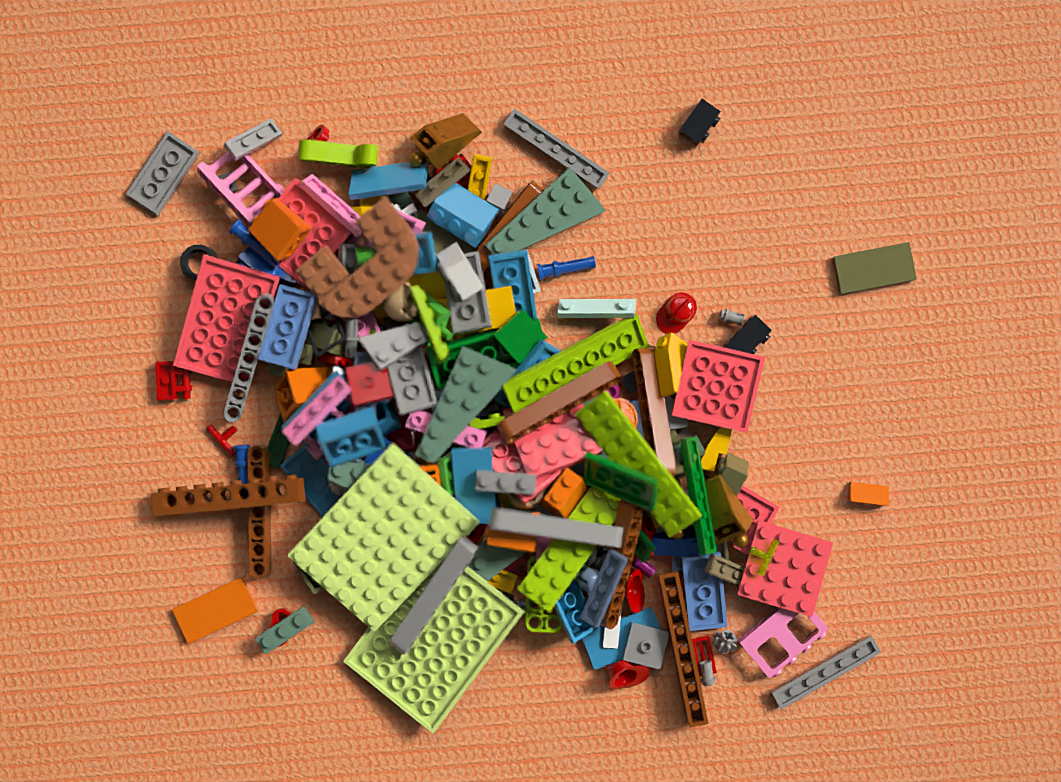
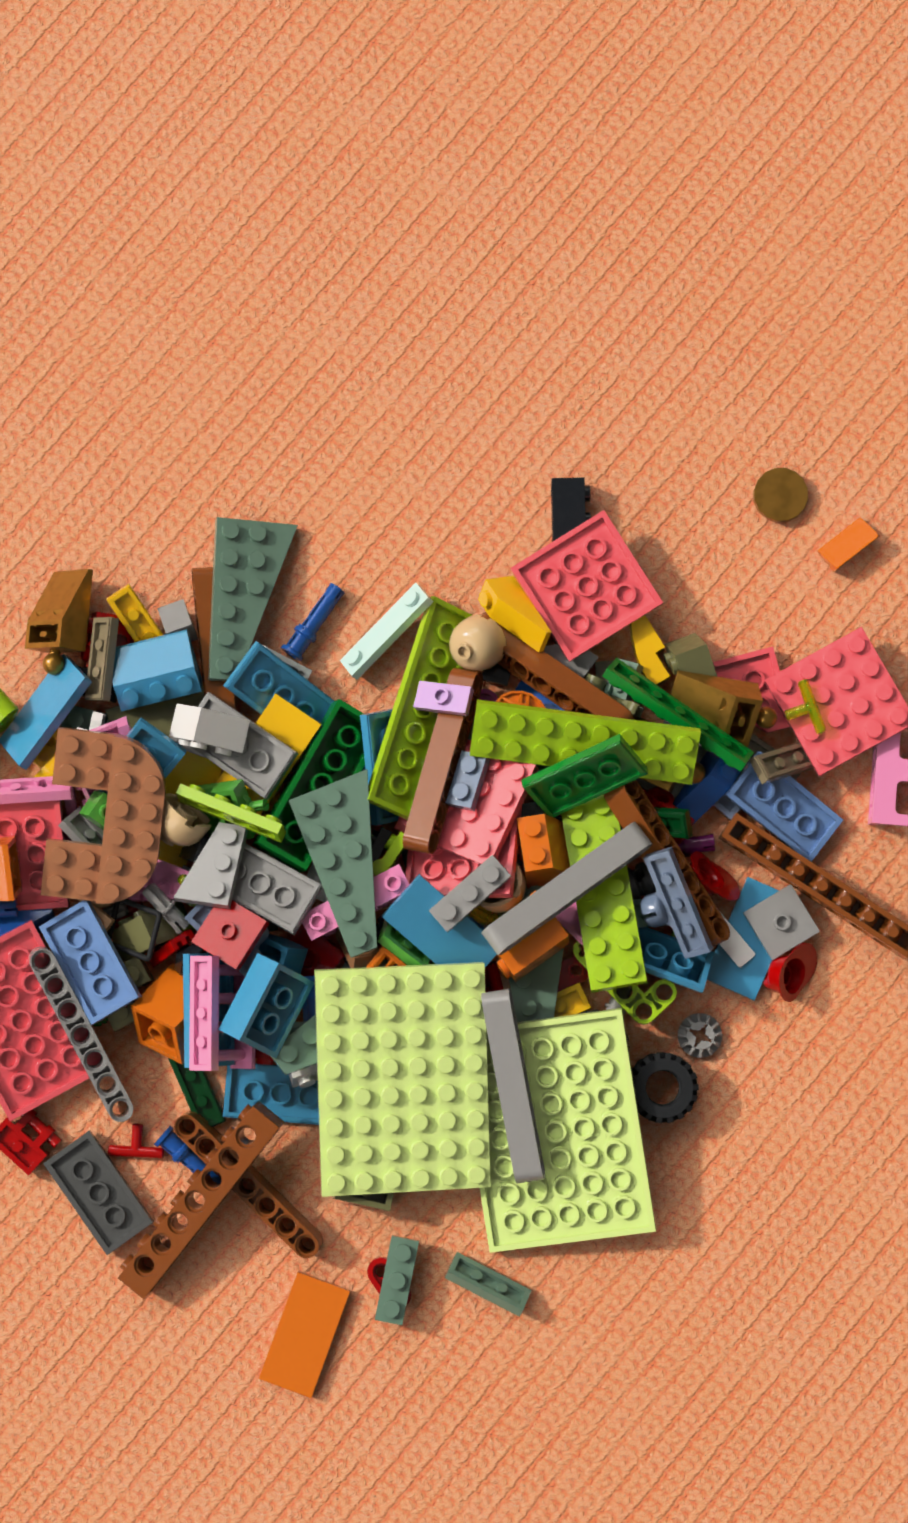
camera: 50 degrees left, 5 degrees down
(183, 442) = (98, 1192): none -> dark grey plate
(327, 675) = (488, 1284): none -> sand green plate
(508, 683) = (687, 1087): none -> black tyre
(519, 335) = (335, 733): green tile -> none
(555, 651) = (687, 1039): none -> light grey gear
(556, 148) = (184, 513): light grey plate -> none
(560, 425) = (467, 781): none -> sand blue plate
(590, 372) = (443, 698): none -> lavender plate
(634, 360) = (477, 643): none -> tan cylinder
(676, 313) = (471, 557): red piece -> none
(699, 122) = (302, 344): black brick -> none
(699, 639) = (869, 887): red tile -> none
(707, 673) = (871, 887): light grey pin -> none
(725, 641) = (856, 837): light grey gear -> none
(731, 317) = (530, 505): light grey pin -> none
(860, 435) = (780, 494): none -> pearl gold tile
(874, 268) = (624, 315): olive tile -> none

